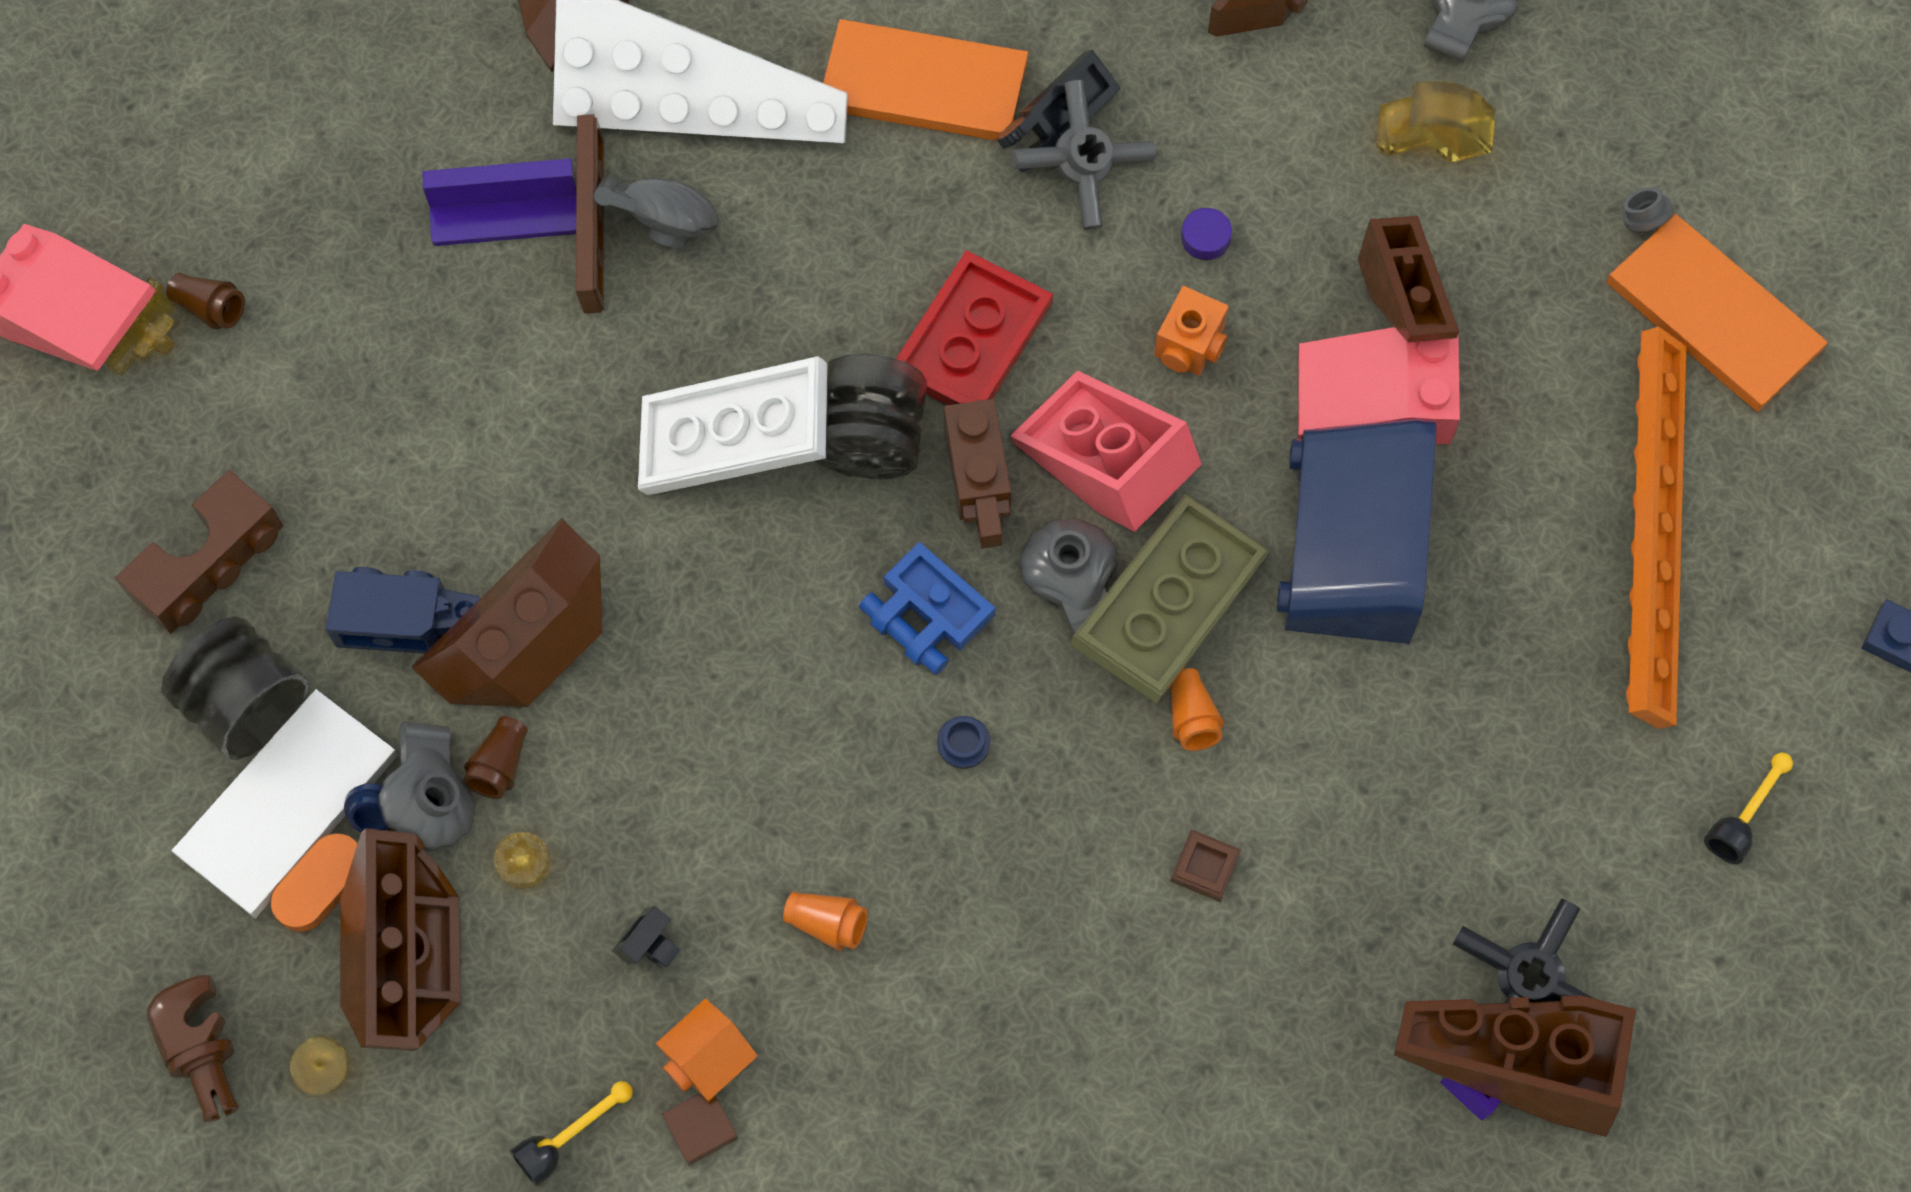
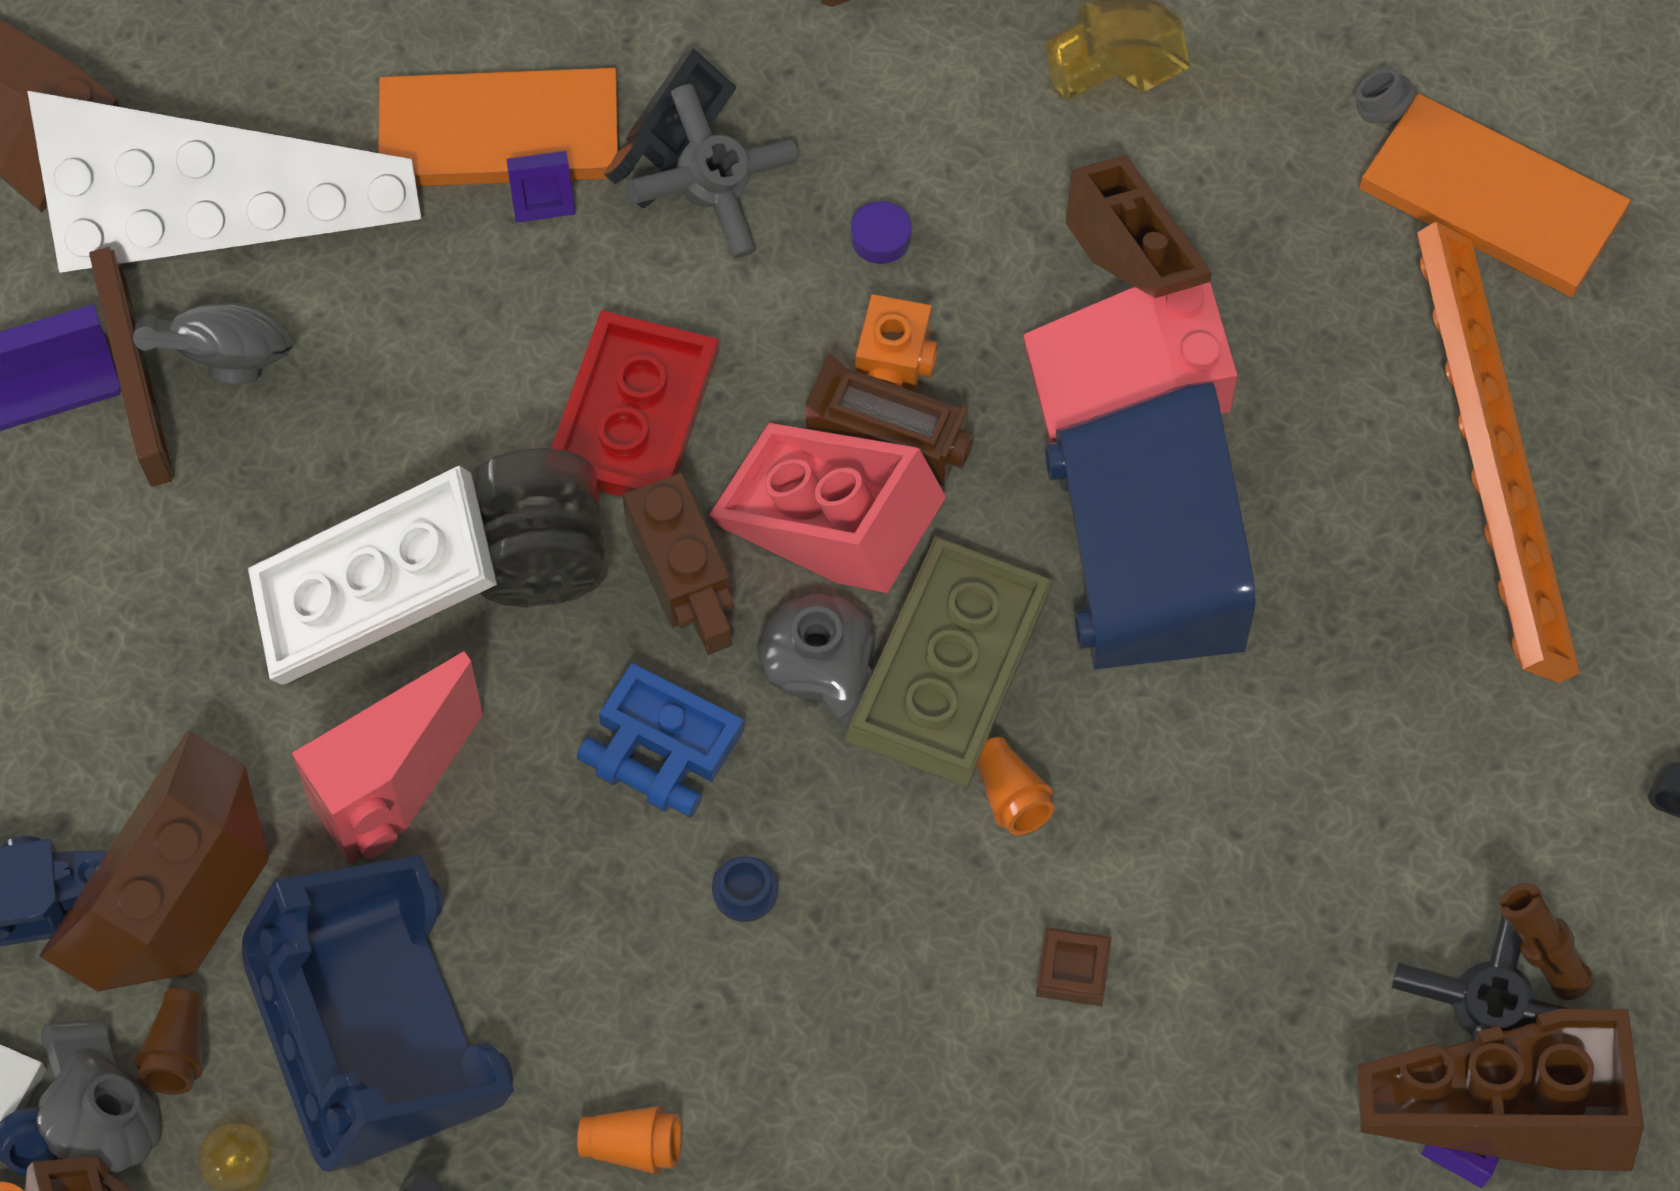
camera: 15 degrees left, 5 degrees down
(648, 769) = (365, 1011): none -> dark blue windscreen
(712, 575) = (385, 761): none -> coral slope
(944, 137) = (540, 186): none -> dark purple plate
(1172, 387) = (879, 411): none -> reddish brown window
(1585, 938) = (1546, 941): none -> reddish brown pin

